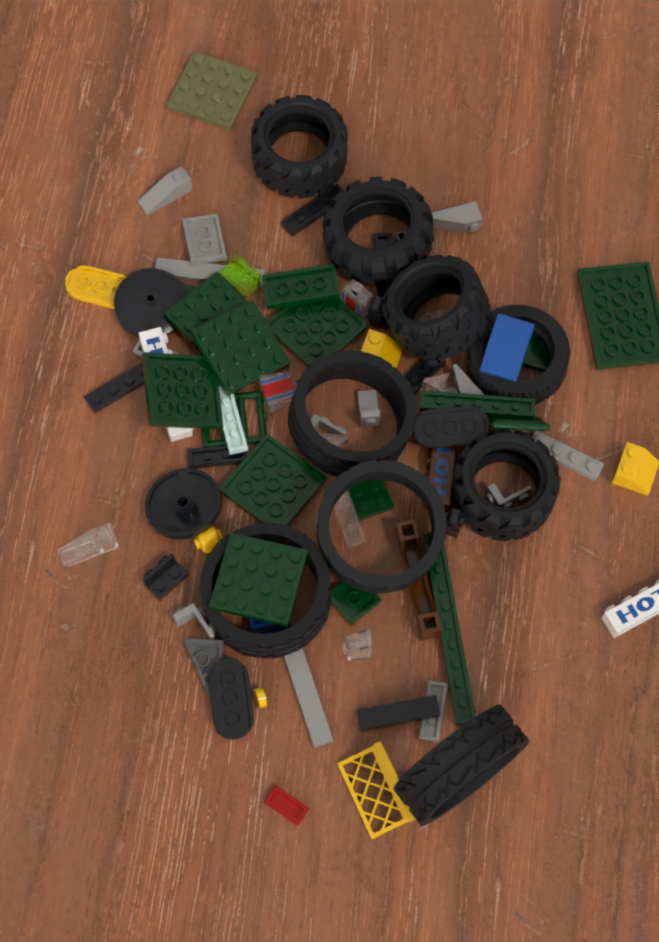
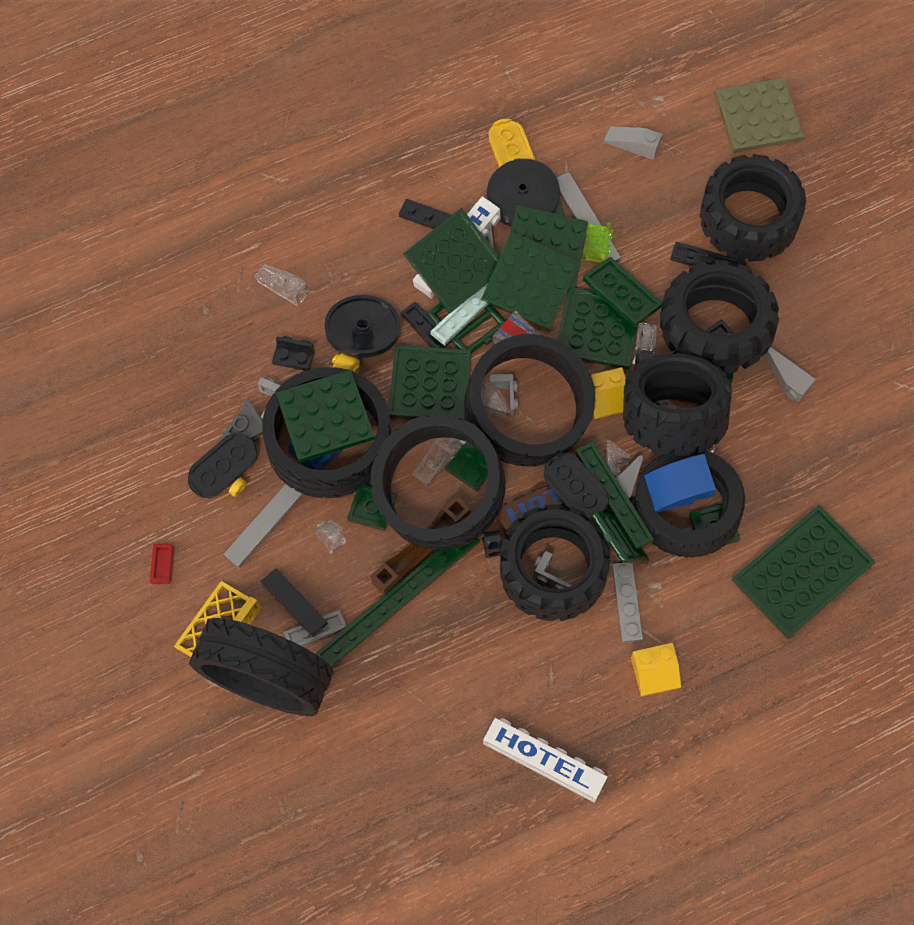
camera: 60 degrees right, 0 degrees up
(204, 239) = (612, 195): light grey tile -> none
(368, 408) = (552, 415): light grey bracket -> none
(423, 370) = (619, 436): black tile -> none

